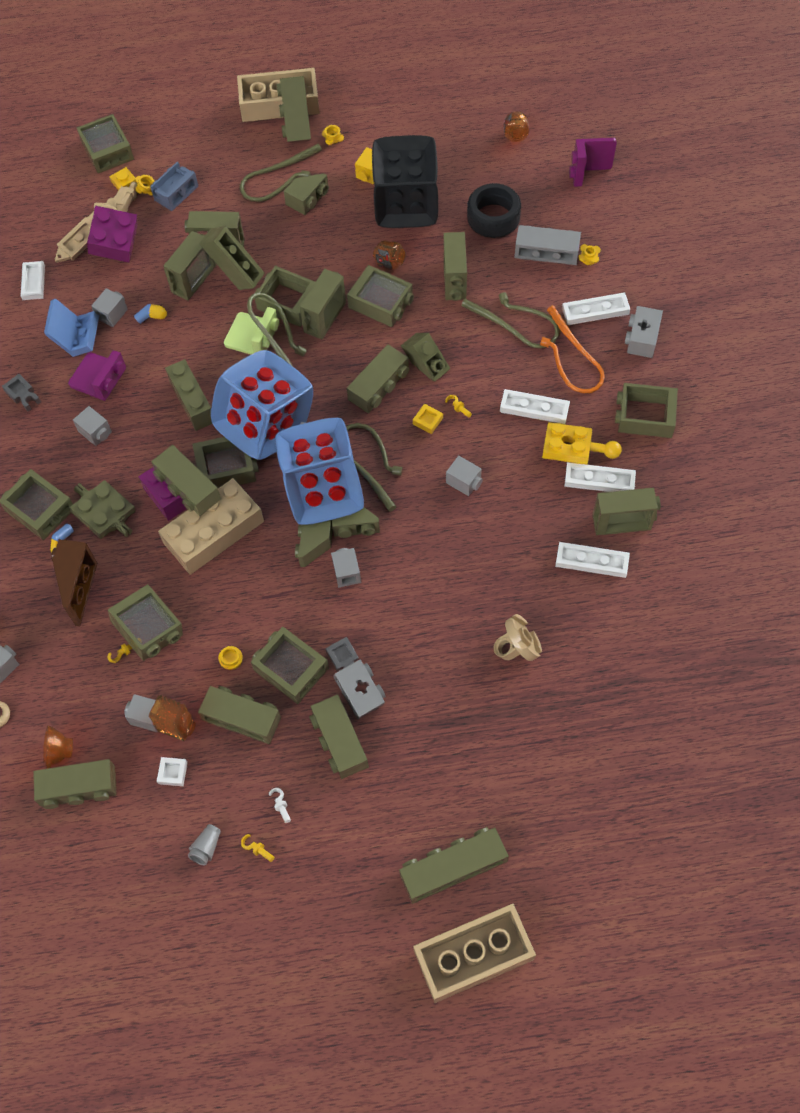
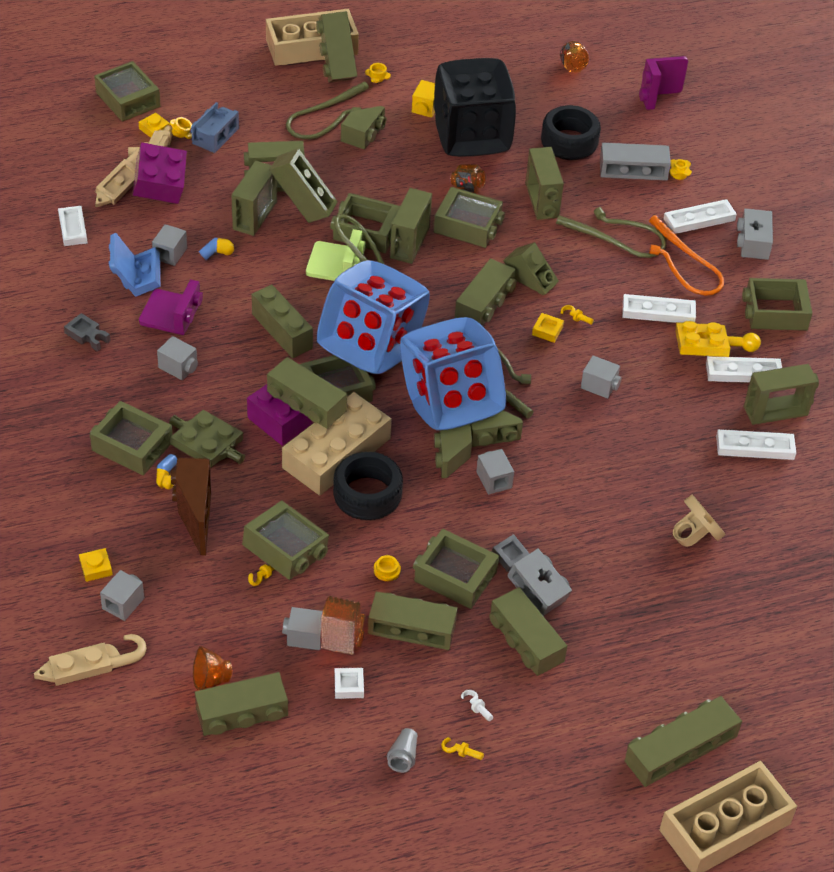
camera: 15 degrees left, 15 degrees down
(225, 552) = (367, 466): none -> black tyre

